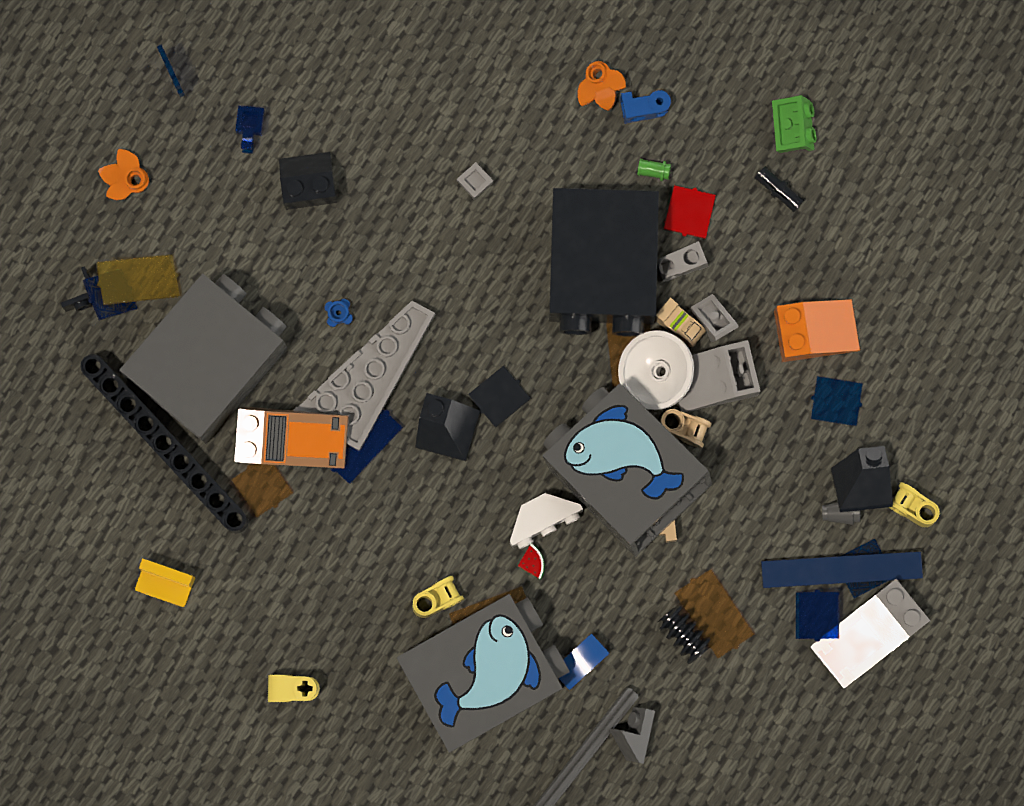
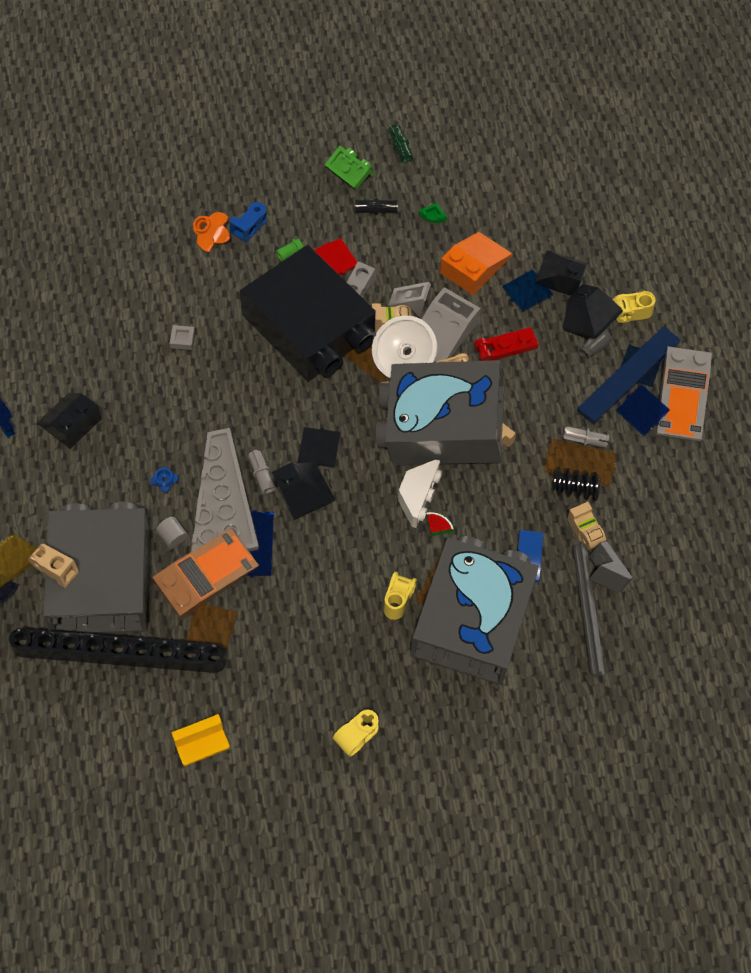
camera: 45 degrees left, 20 degrees down
(161, 332) = (54, 564): none -> tan leg
(301, 371) = (171, 532): none -> light grey brick
(426, 378) = (261, 472): none -> light grey axle
(655, 681) = (586, 526): none -> tan leg
(740, 596) = (585, 437): none -> light grey axle
(761, 441) = (506, 344): none -> red plate
(826, 242) = (433, 213): none -> green tile
(869, 137) = (400, 143): none -> clear green pin
(885, 411) = (560, 273): none -> black slope

